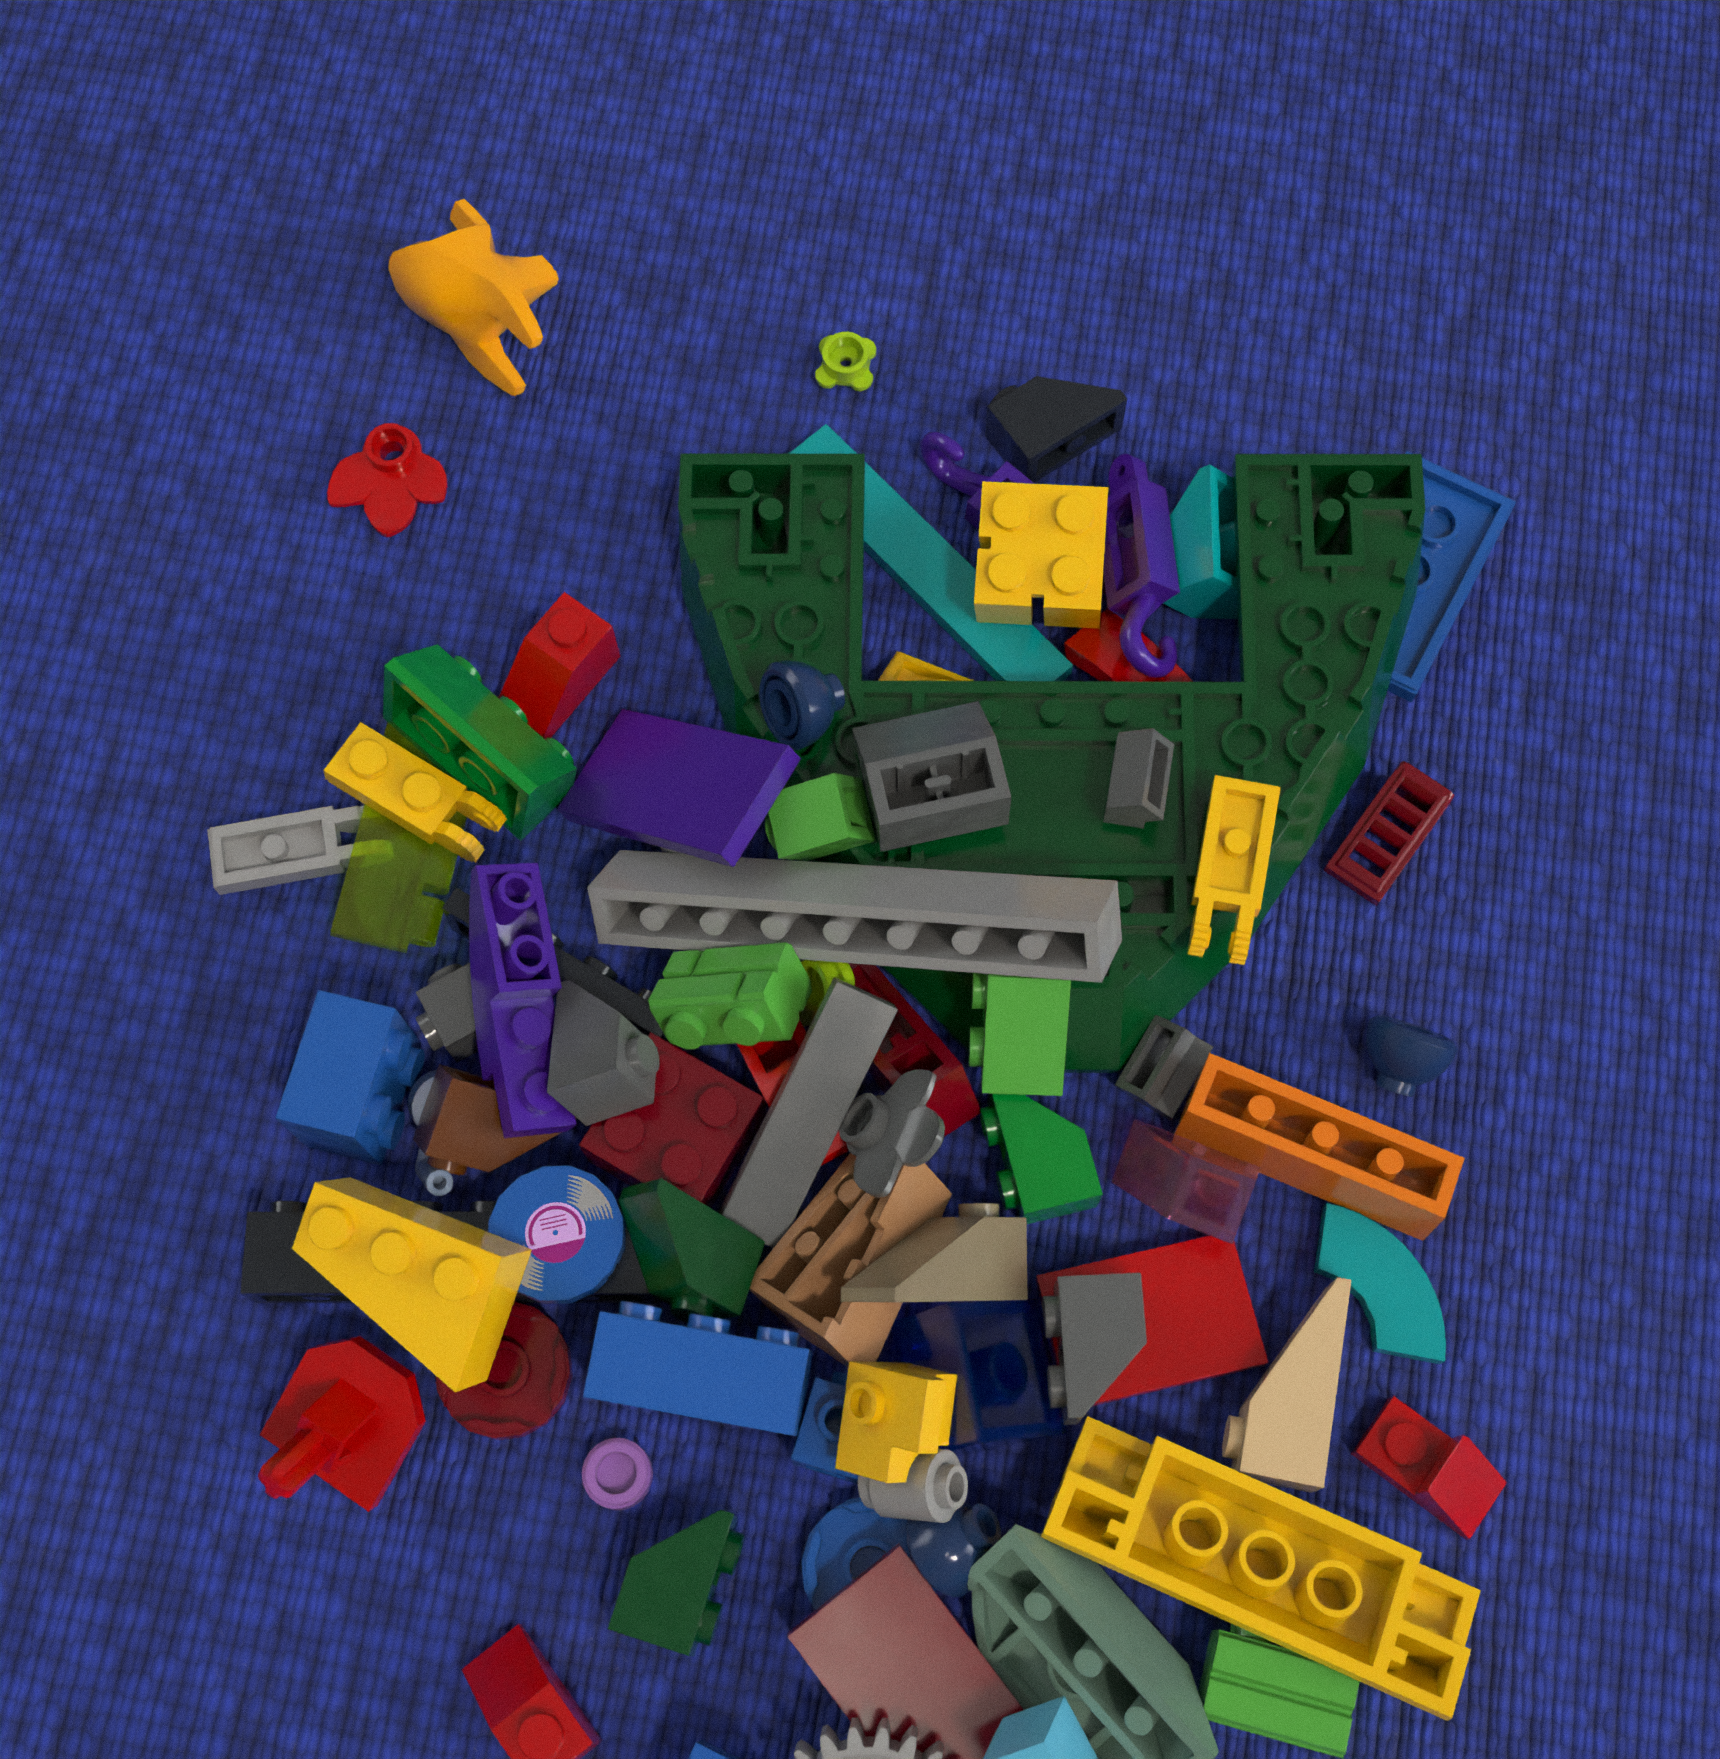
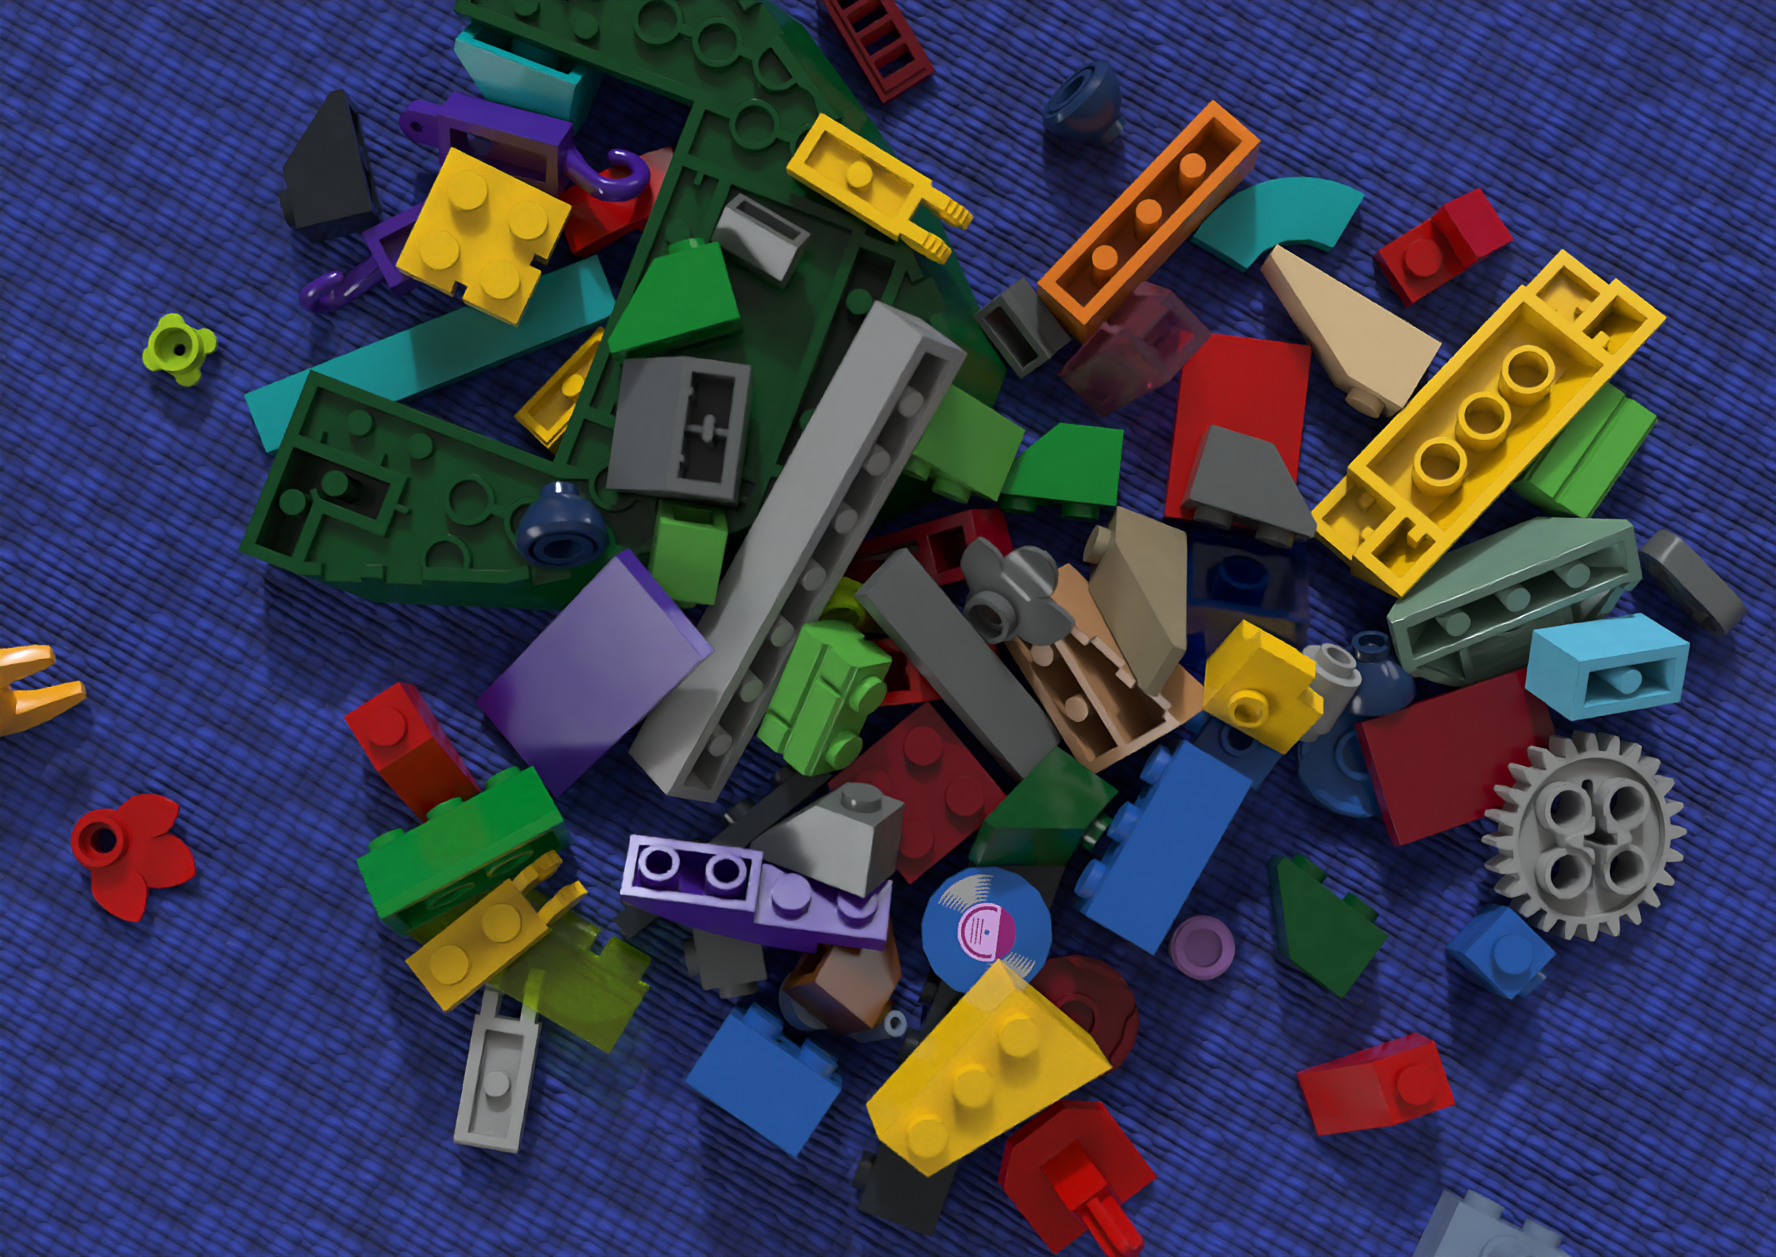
camera: 75 degrees left, 15 degrees up
(1048, 727) = (678, 303): none -> green slope

